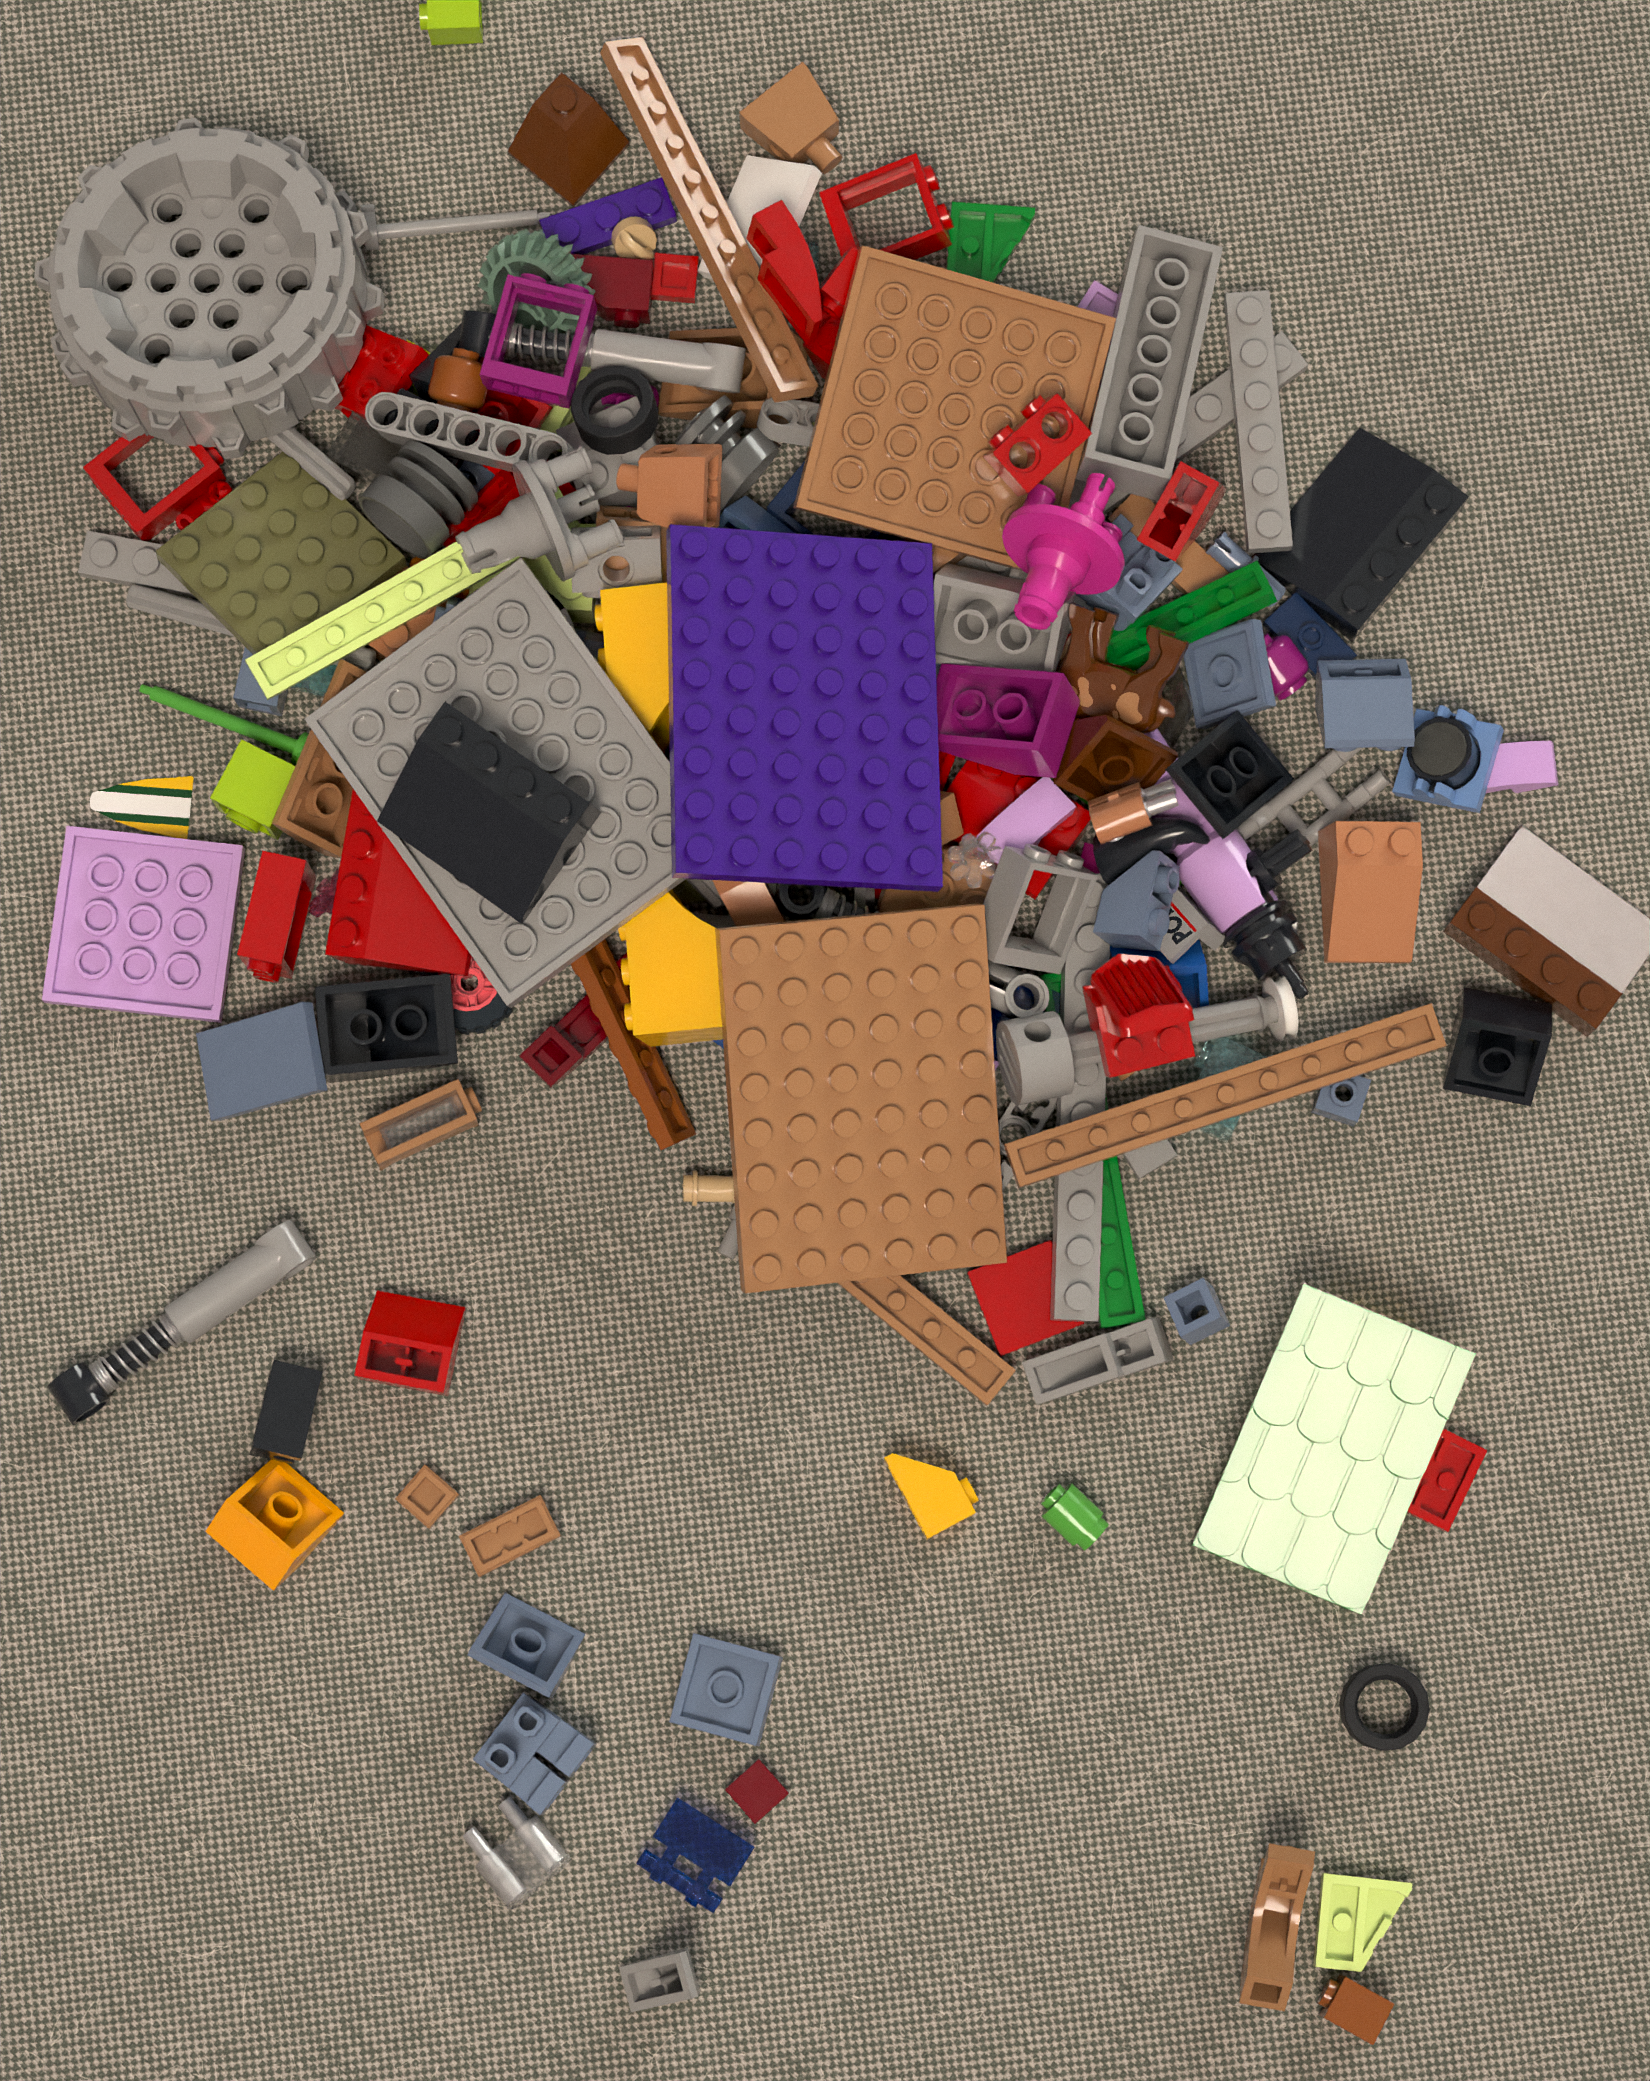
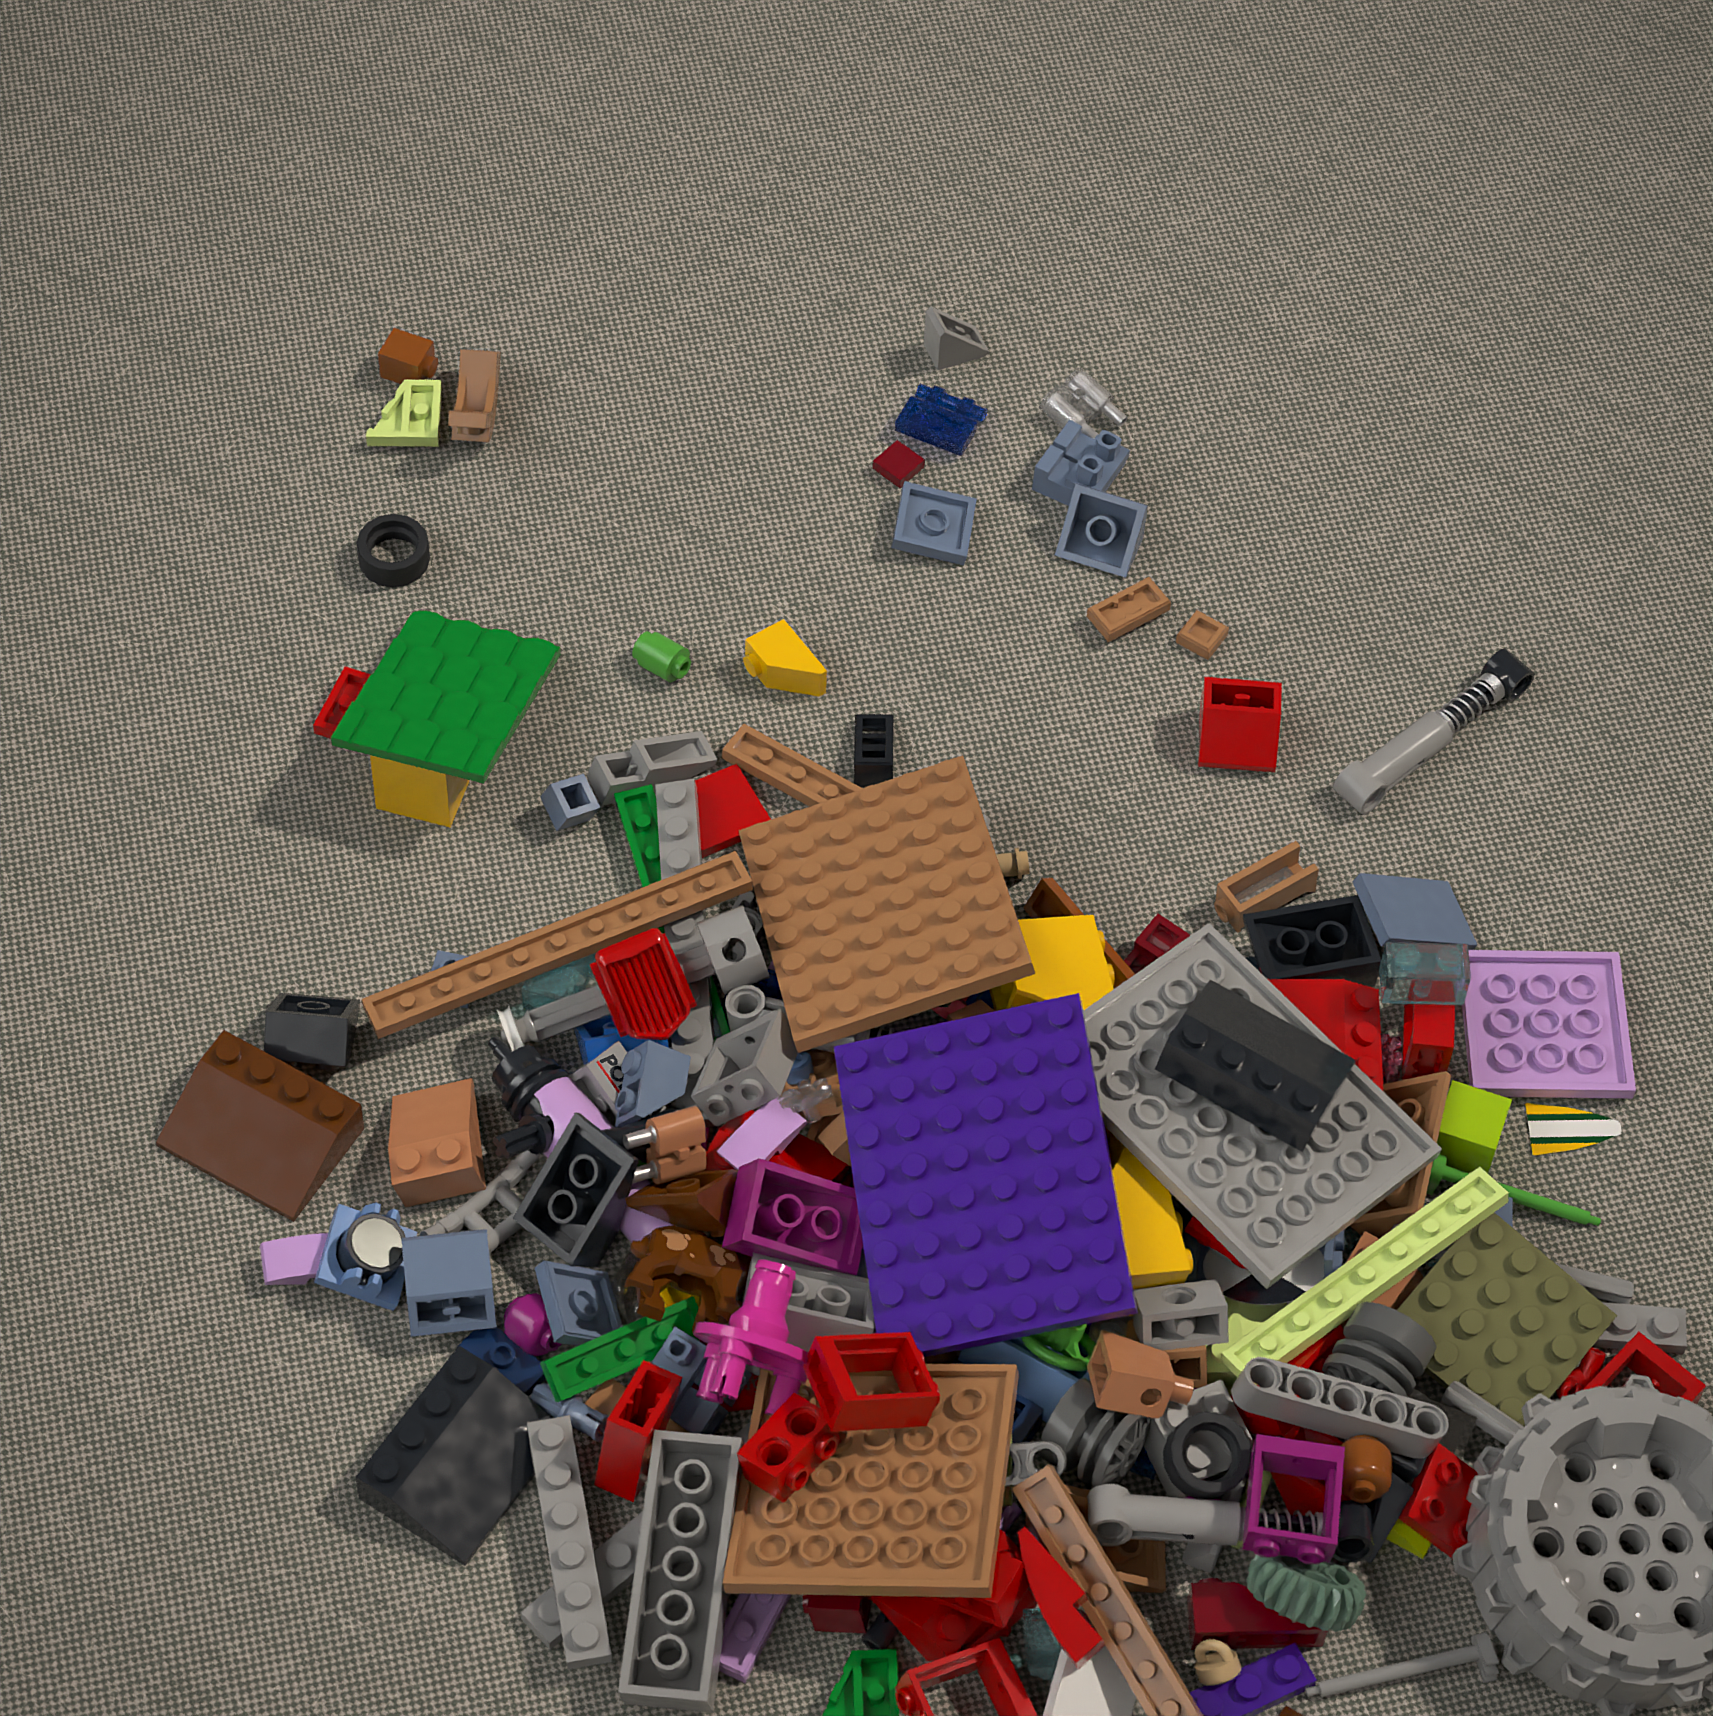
camera: 170 degrees right, 25 degrees down
(274, 1522) = (1323, 601): light orange slope -> none
(278, 924) = (1424, 973): none -> clear light blue brick
(286, 1412) = (1332, 671): black hinge -> none
(538, 521) = (1260, 1303): light grey piece -> none
(675, 278) = (1173, 1633): red plate -> none
(843, 1329) = (873, 750): none -> black slope
(991, 477) = (845, 1410): none -> red window

